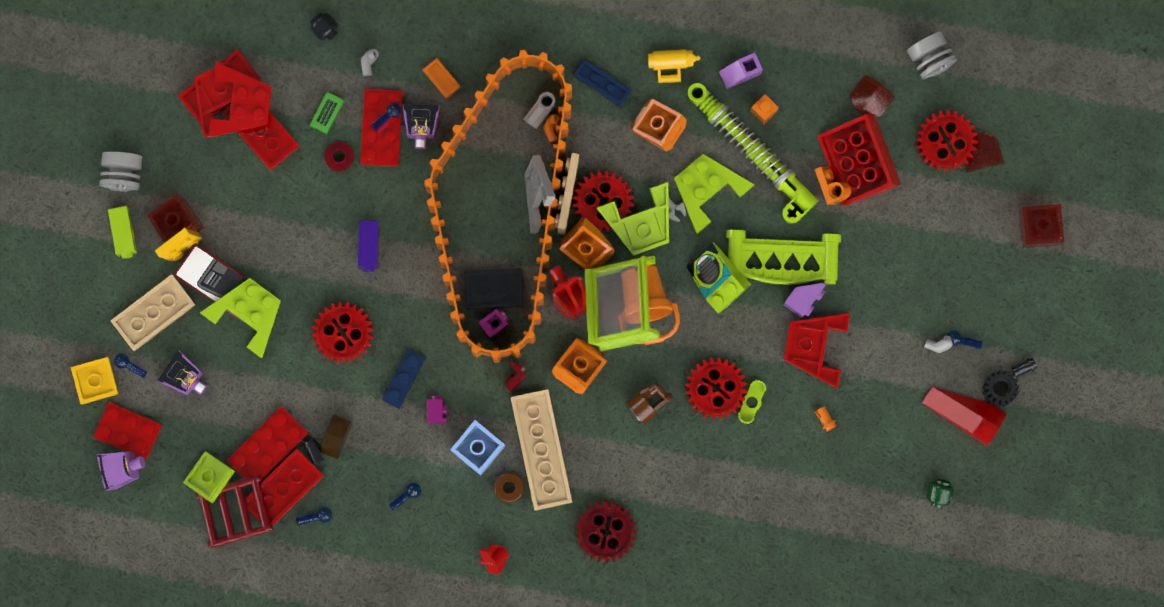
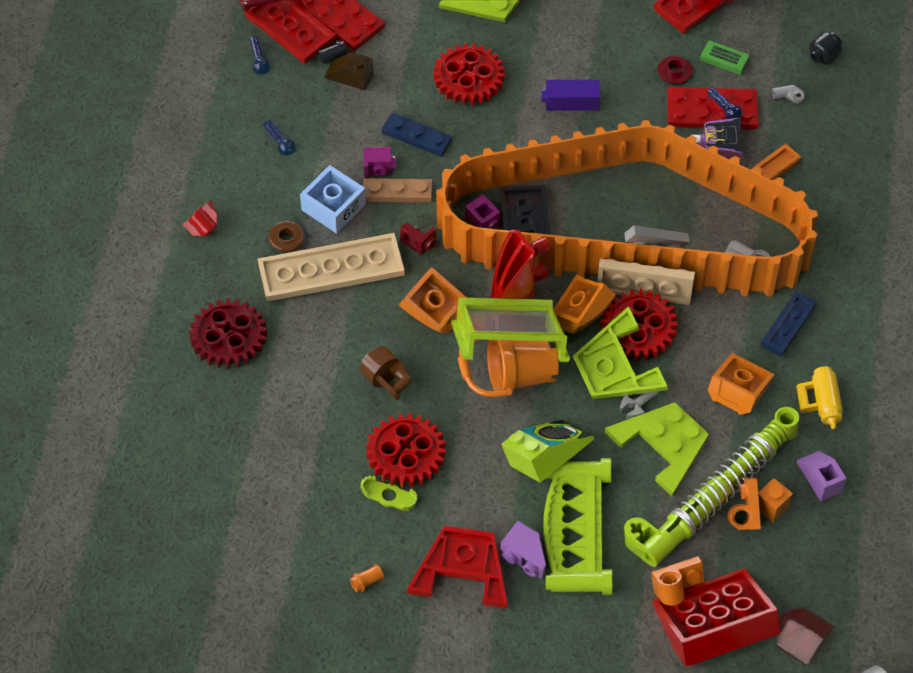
camera: 90 degrees right, 25 degrees down
(462, 395) = (398, 190): none -> medium nougat plate
(776, 130) = (749, 492): none -> orange plate

